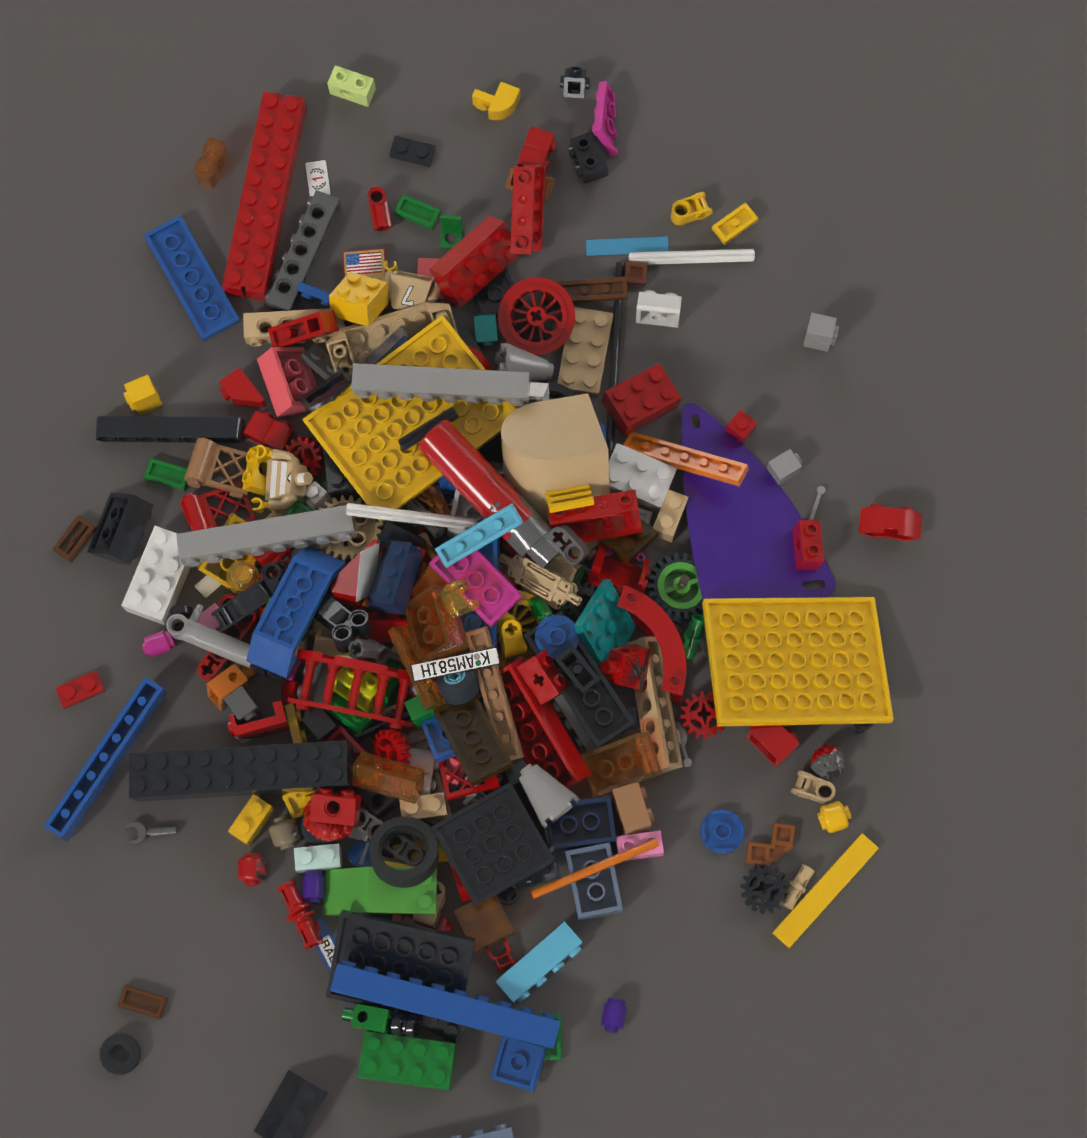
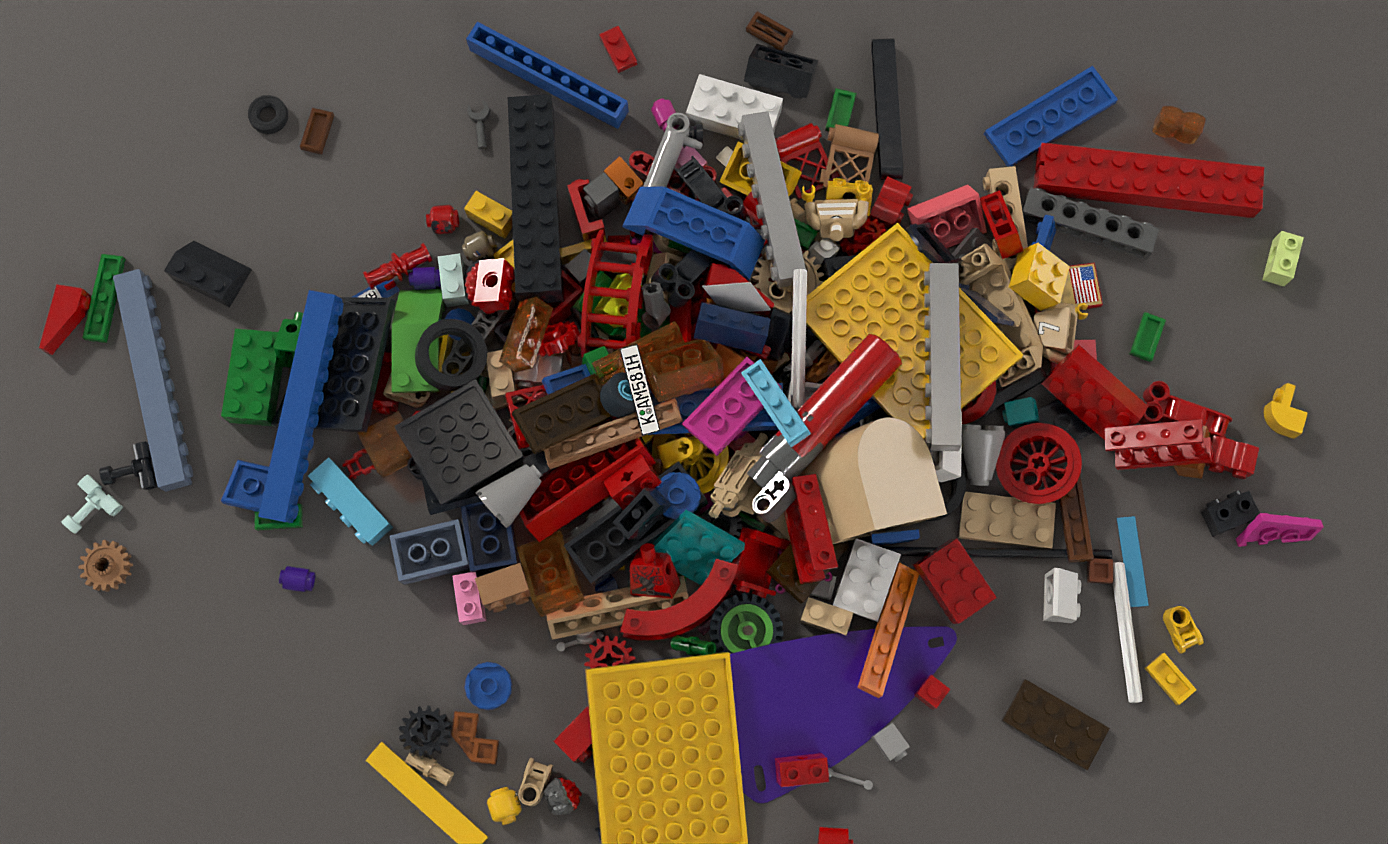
camera: 85 degrees right, 0 degrees up
(142, 395) = (919, 77): yellow brick -> none
(240, 390) = (934, 171): red slope -> none
(241, 576) = (732, 181): clear yellow helmet -> none
(317, 177) = (1175, 234): white sticker -> none
(379, 210) = (1144, 296): red piece -> none
(405, 1025) = (282, 370): black wheel -> none
(412, 151) = (1216, 327): black plate -> none
(416, 435) = (884, 333): black axle -> none
(450, 224) = (1135, 370): green bracket -> none
(454, 600) = (706, 382): clear yellow helmet -> none
(493, 188) = (1174, 409): none -> red piece
(539, 608) = (709, 479): green tile -> none
(569, 498) = (826, 495): yellow tile -> none
(574, 82) = (1317, 493): black brick -> none
(594, 868) = (439, 549): orange piece -> none
(771, 324) = (1055, 724): none -> dark brown plate
(821, 332) = (1048, 778): light grey brick -> none

